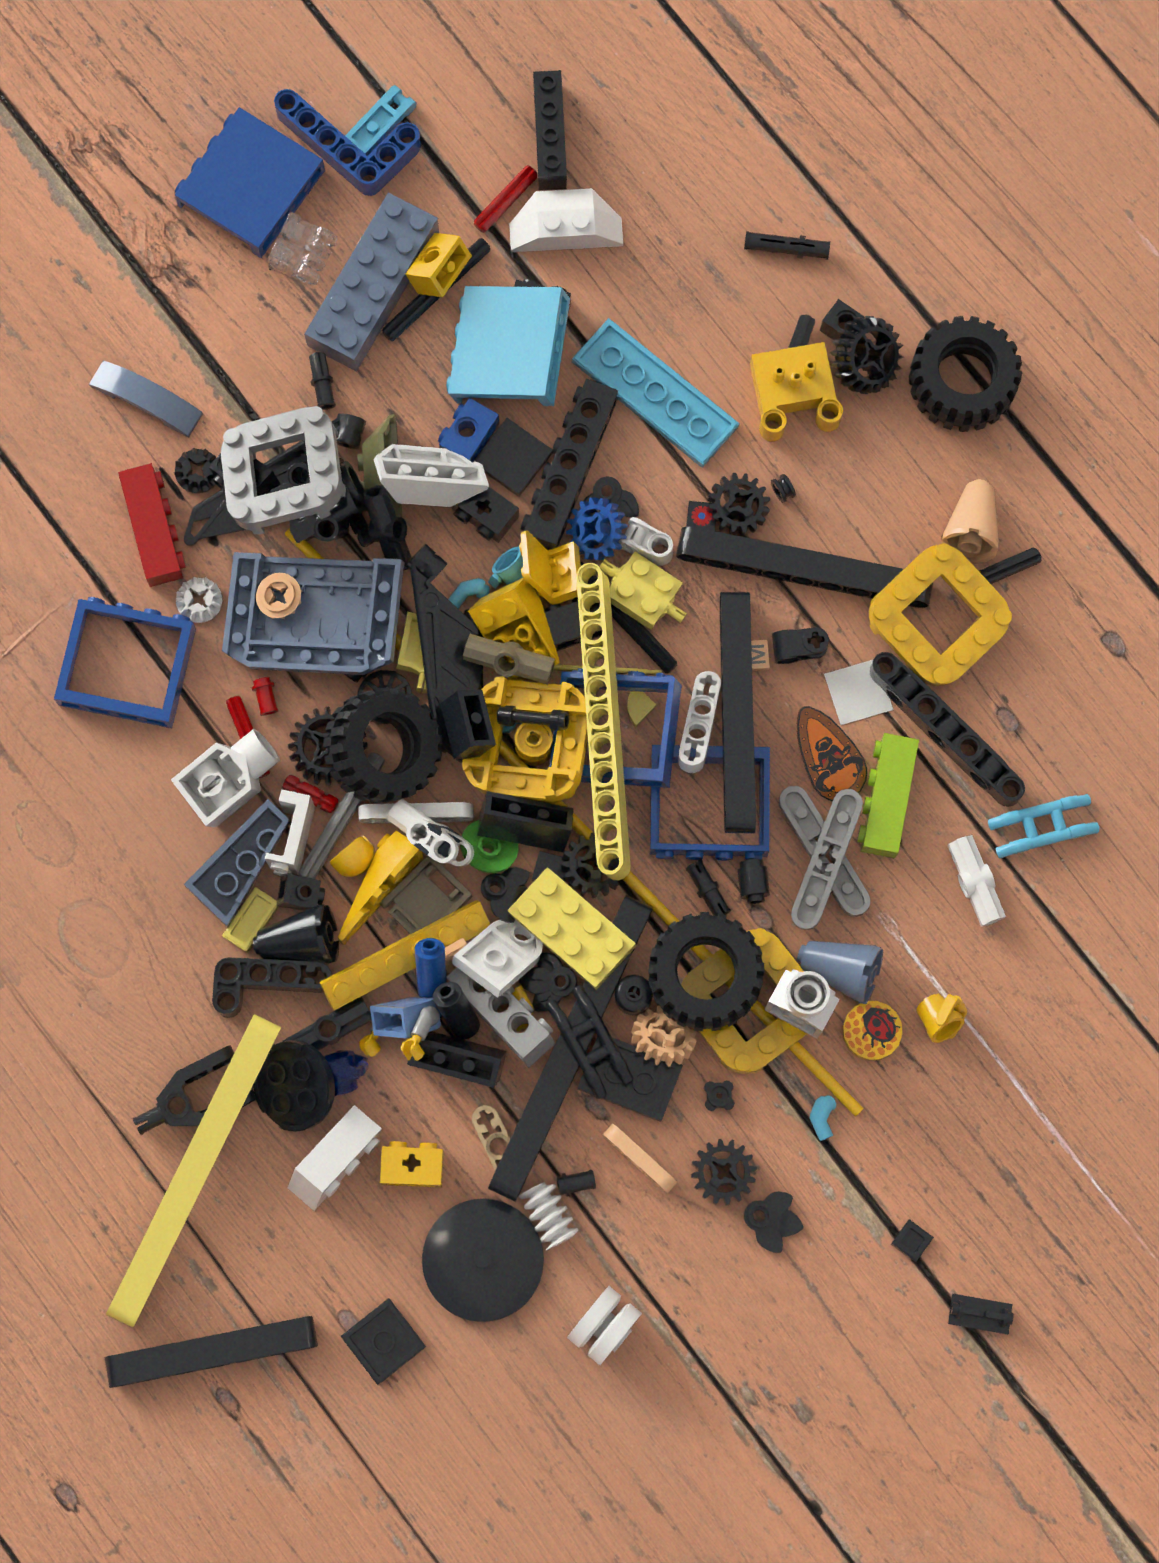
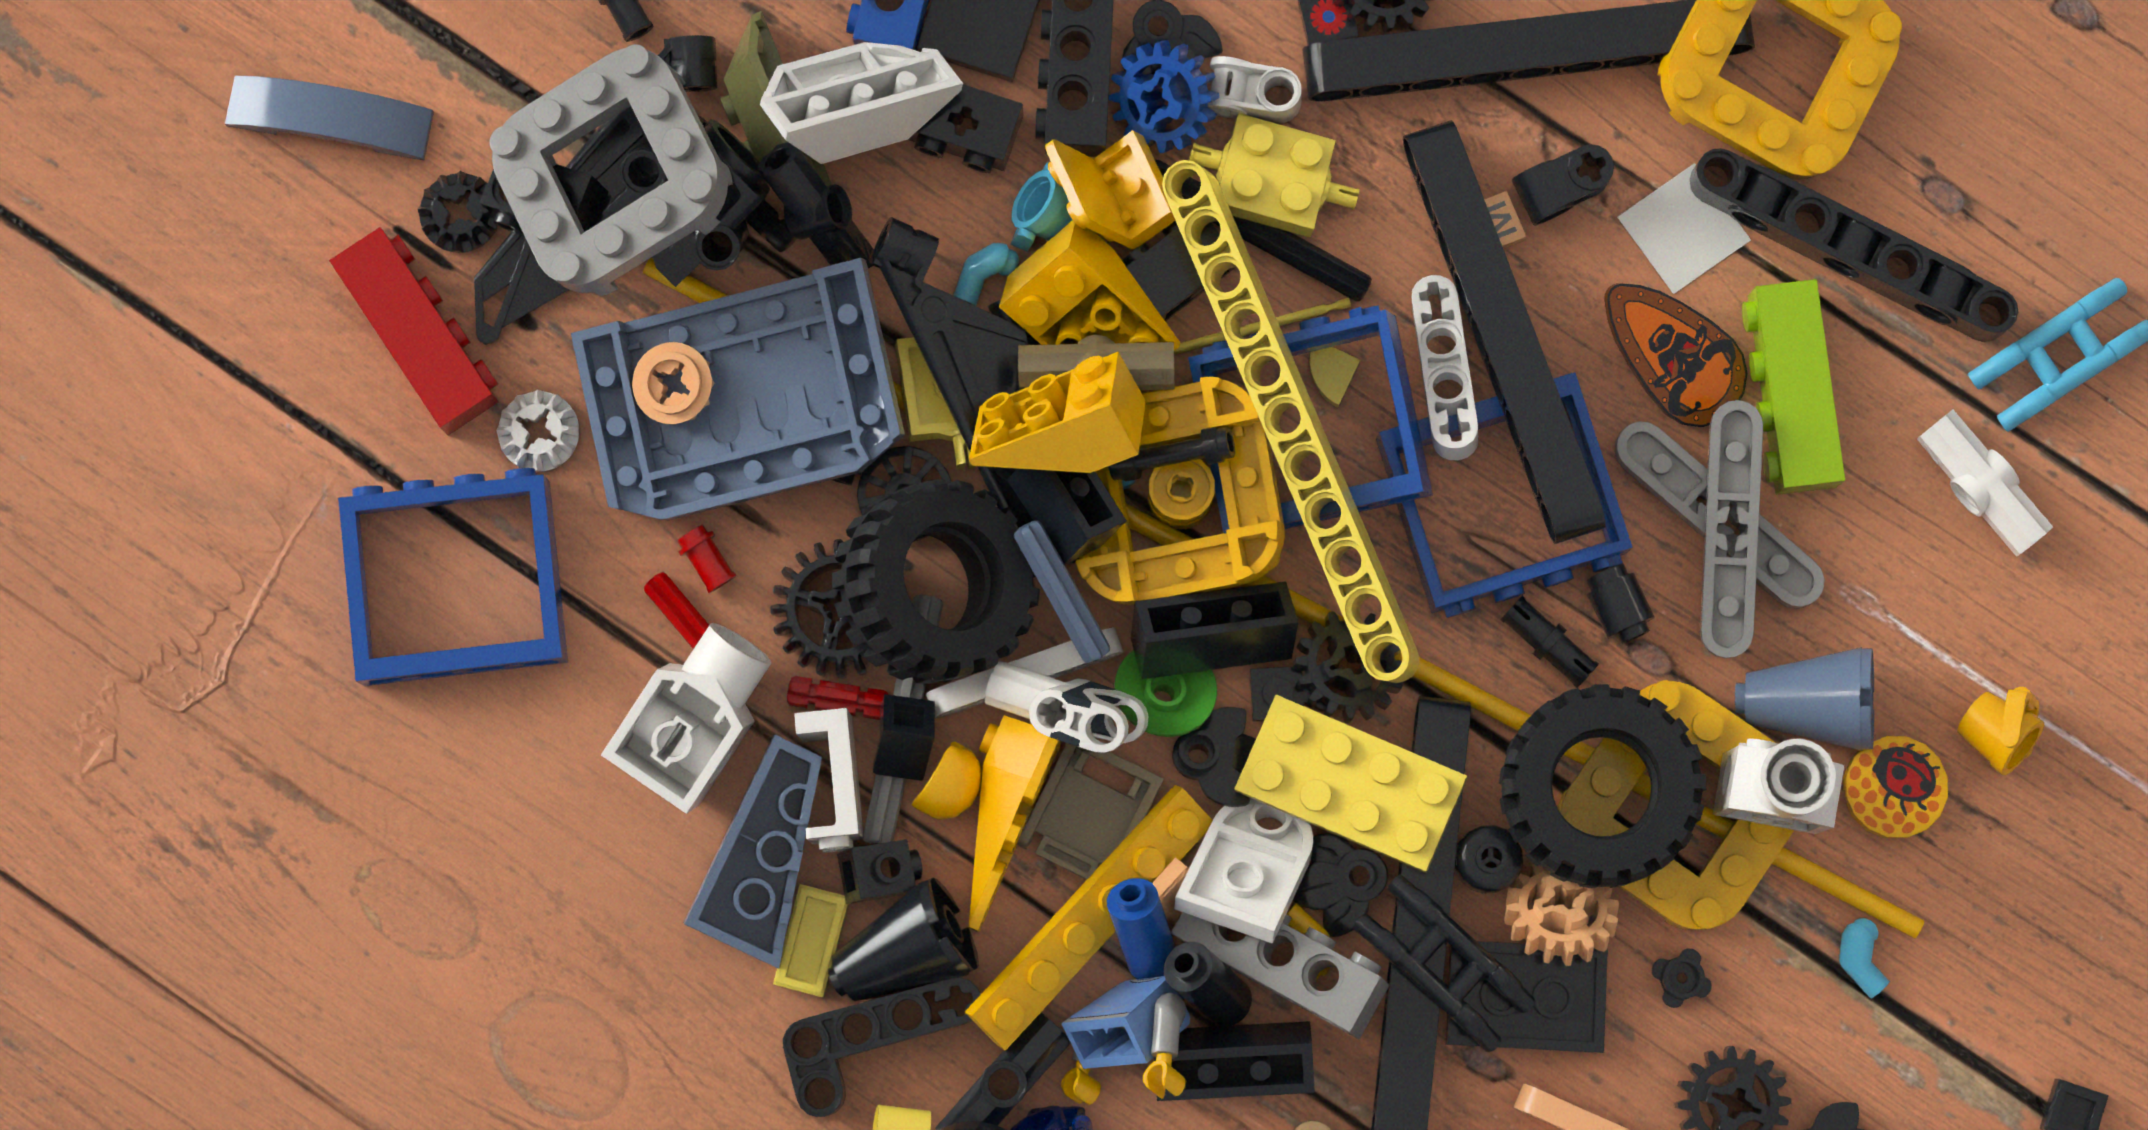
camera: 15 degrees left, 5 degrees up
(337, 825) = (905, 737): none -> black panel
(449, 772) = (1062, 591): none -> sand blue axle
(480, 680) = (1063, 421): none -> yellow slope

